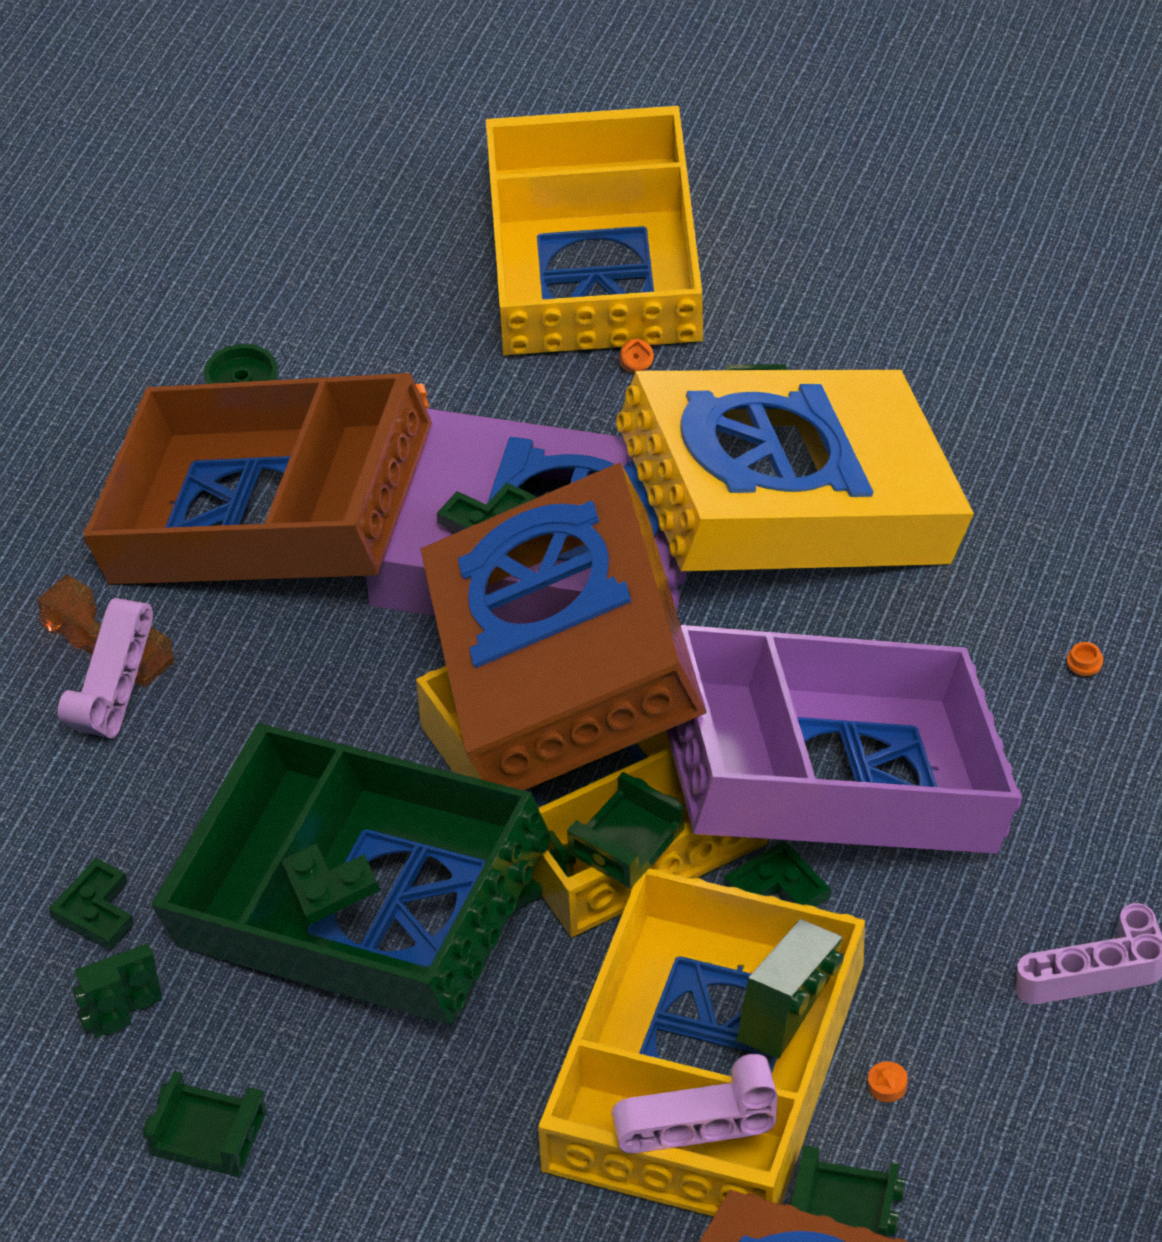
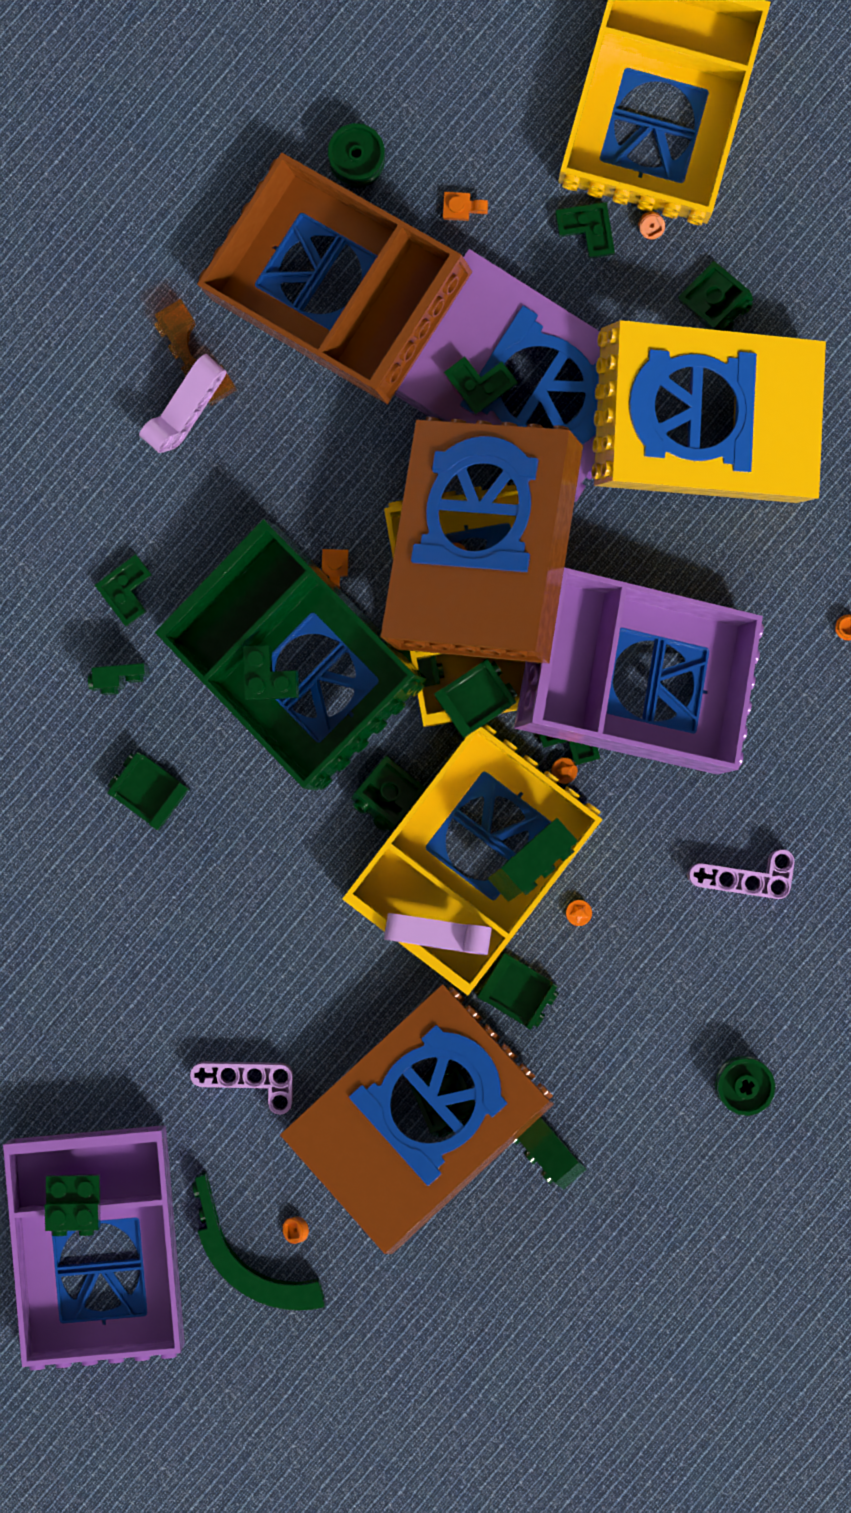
camera: 15 degrees right, 40 degrees up
(545, 1019) = (387, 794): none -> dark green plate
(558, 372) = (588, 220): none -> dark green plate

